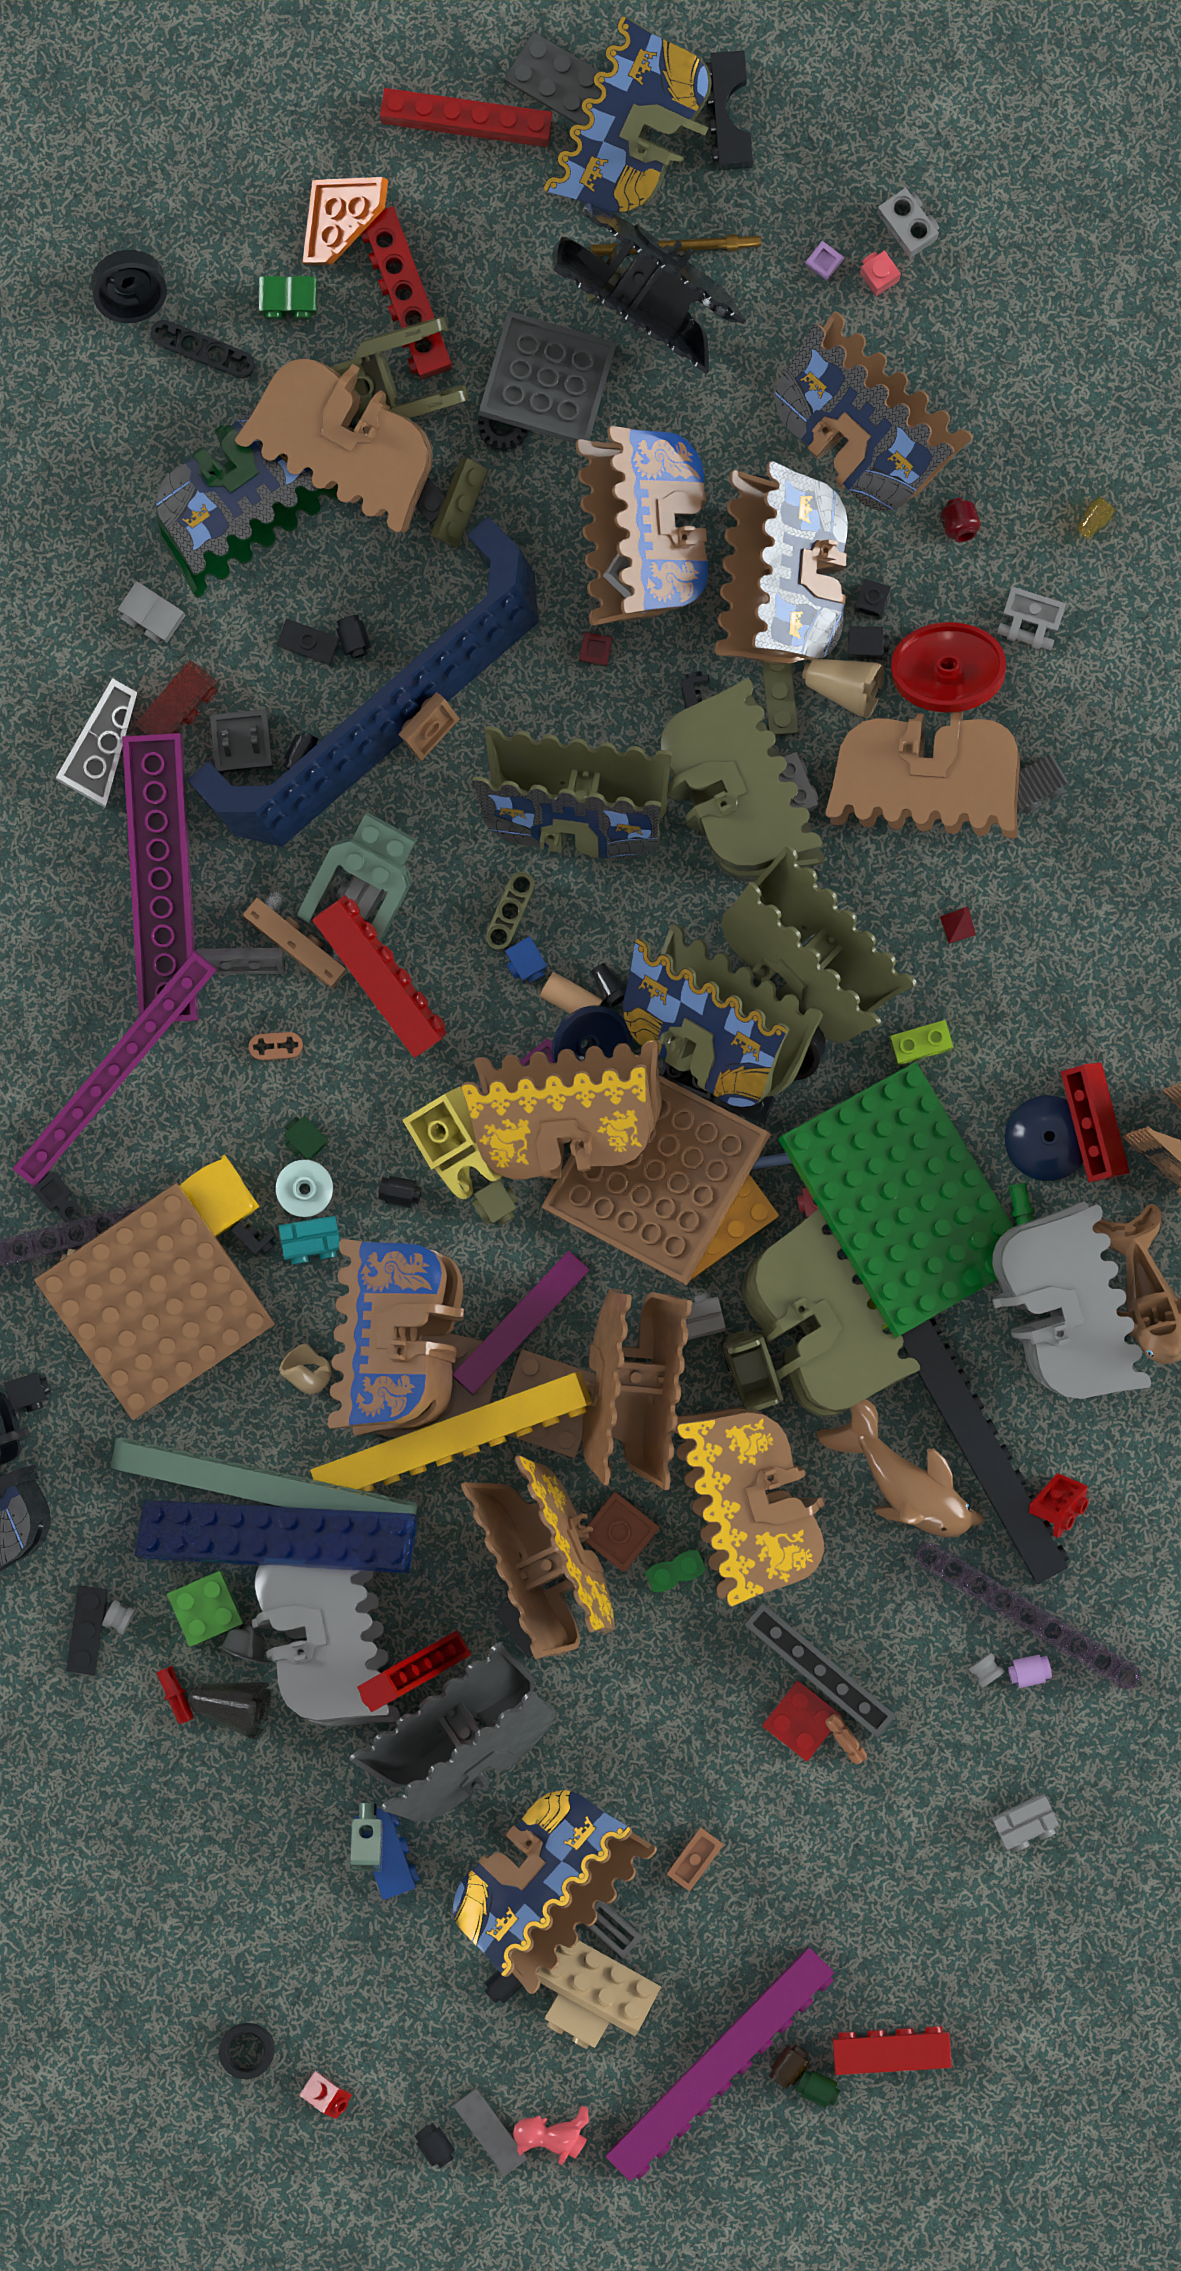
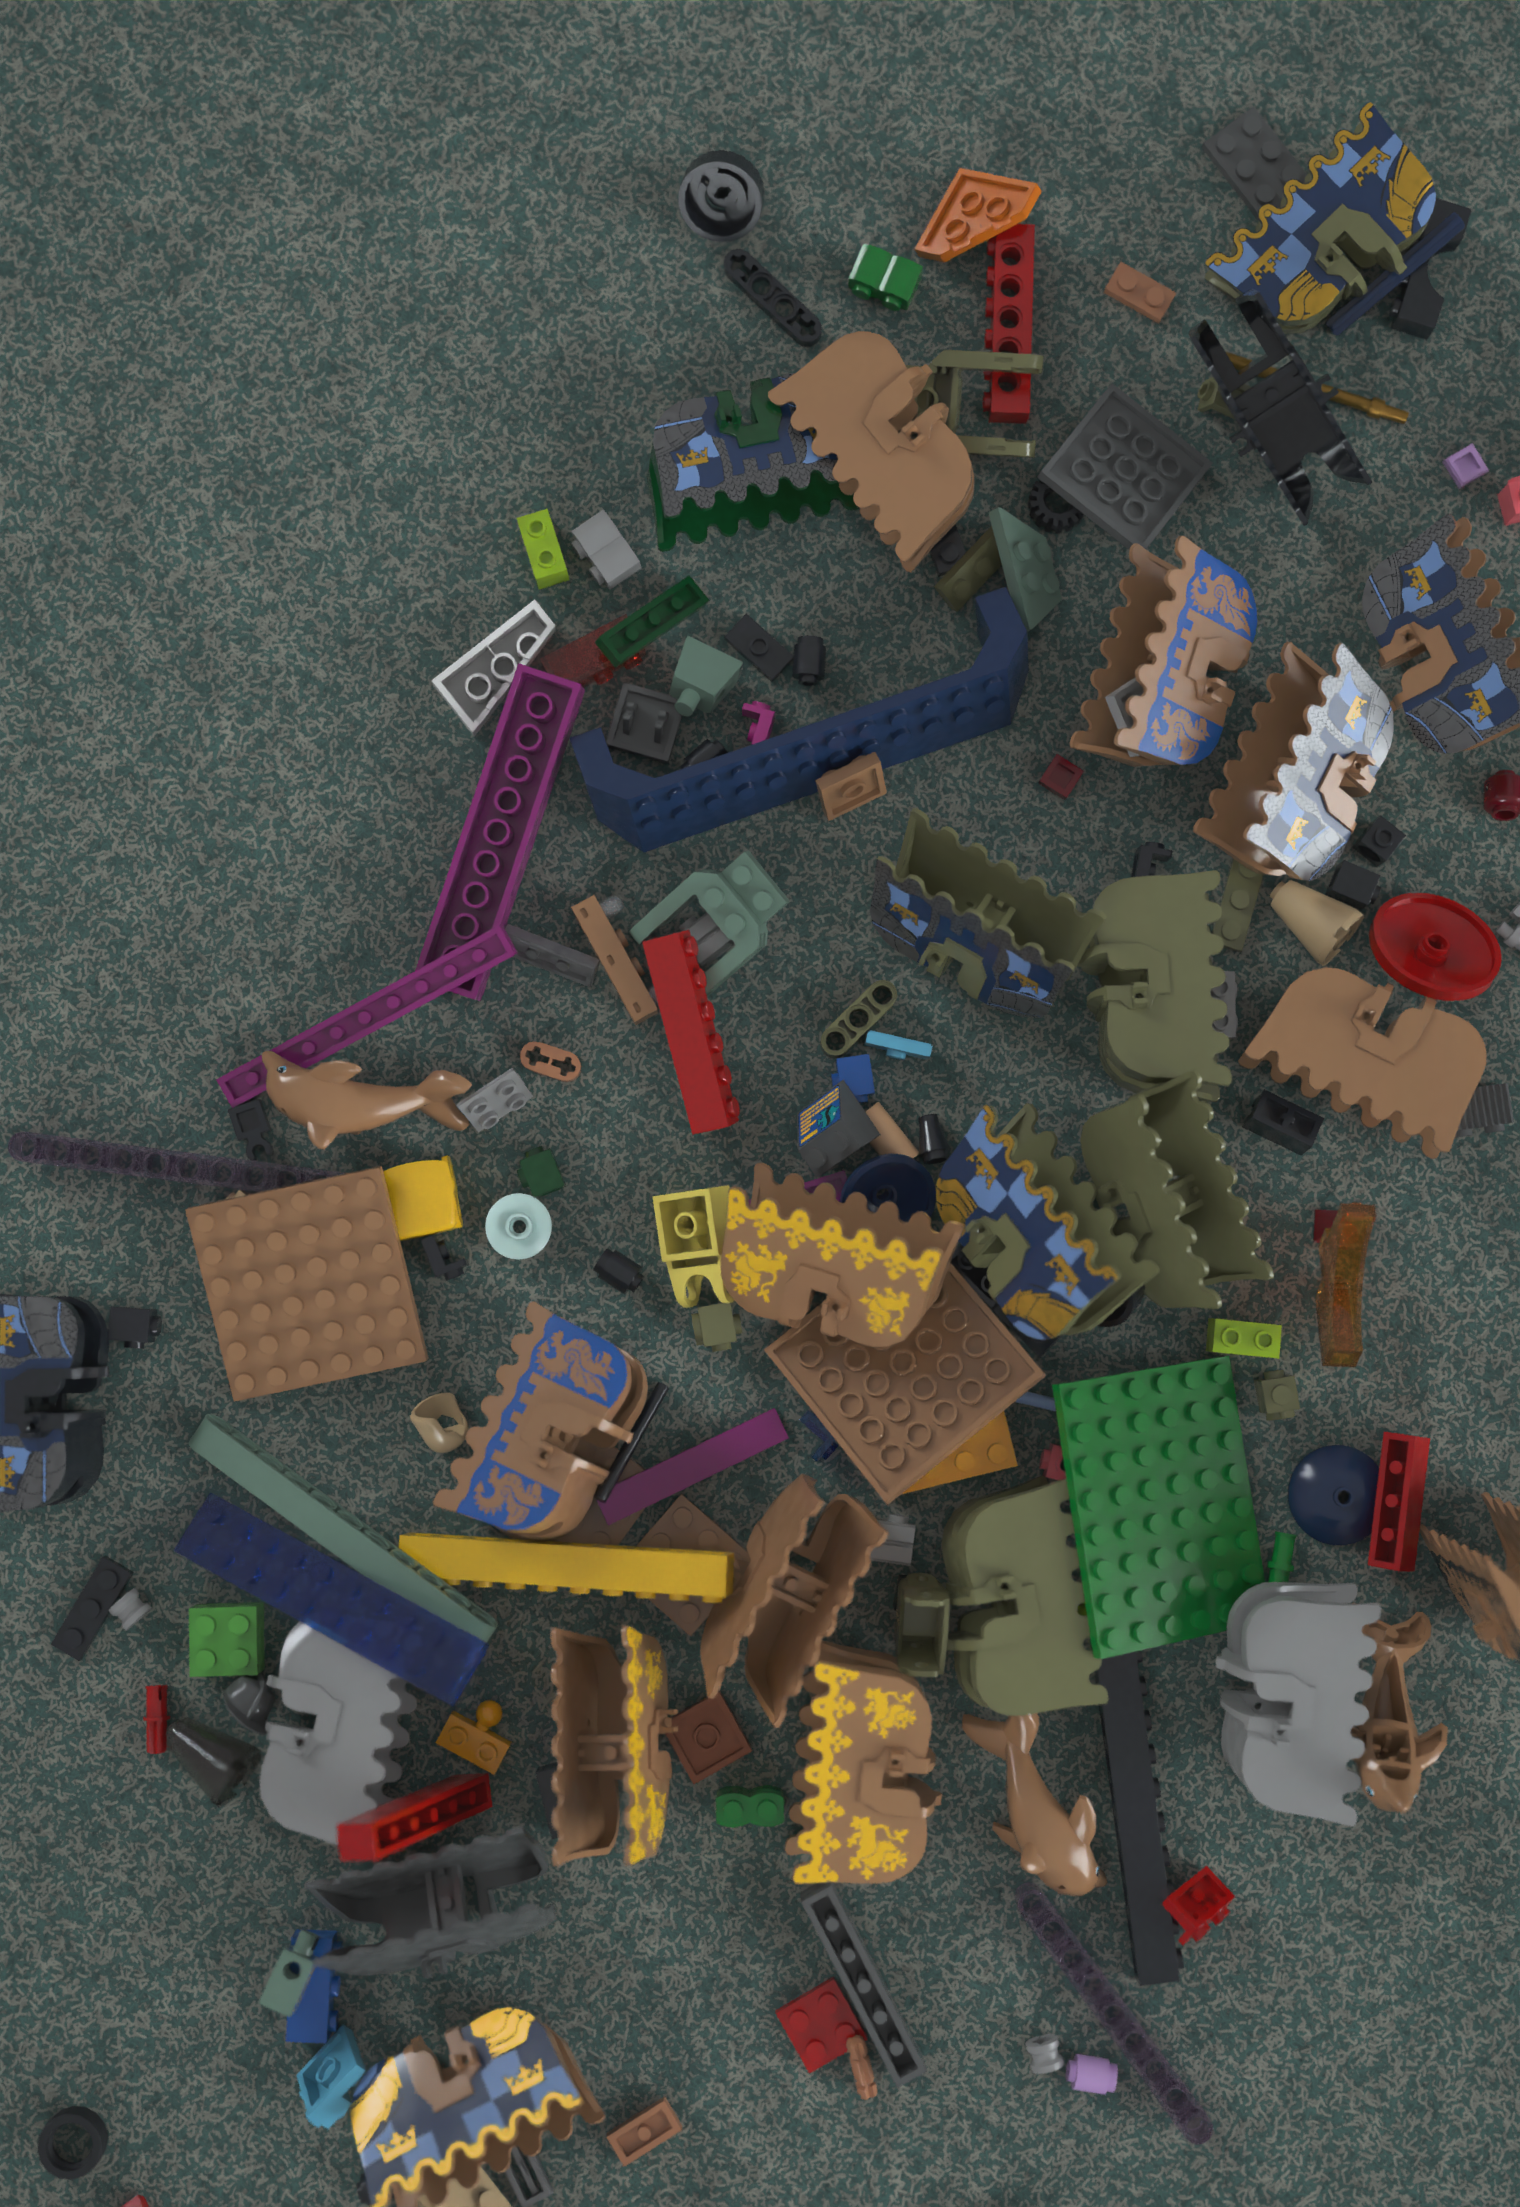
camera: 15 degrees right, 0 degrees up
(100, 632) = (543, 549): none -> lime brick
(120, 1147) = (334, 1105): none -> medium nougat animal
(213, 657) = (651, 621): none -> dark green plate
(245, 1094) = (495, 1100): none -> light grey hinge
(272, 686) = (702, 677): none -> sand green torso
(310, 1239) = (502, 1283): teal brick -> none
(337, 710) = (766, 717): none -> dark pink bracket
(427, 1913) = (328, 2078): none -> medium azure plate
(436, 1610) = (475, 1740): none -> light orange plate
(464, 1325) = (628, 1448): none -> black bar
(466, 117) = (1148, 165): red brick -> none
(499, 491) = (1026, 567): none -> sand green wing
(501, 223) = (1139, 292): none -> nougat plate
(525, 1008) = (833, 1129): none -> dark grey slope
(551, 921) = (897, 1046): none -> medium azure plate
(604, 1249) = (828, 1445): none -> clear blue bracket
(709, 119) = (1389, 280): none -> dark blue axle
(885, 857) = (1283, 1122): none -> black hinge
(965, 1077) = (1277, 1395): none -> olive brick
(979, 967) = (1340, 1291): none -> clear orange arch

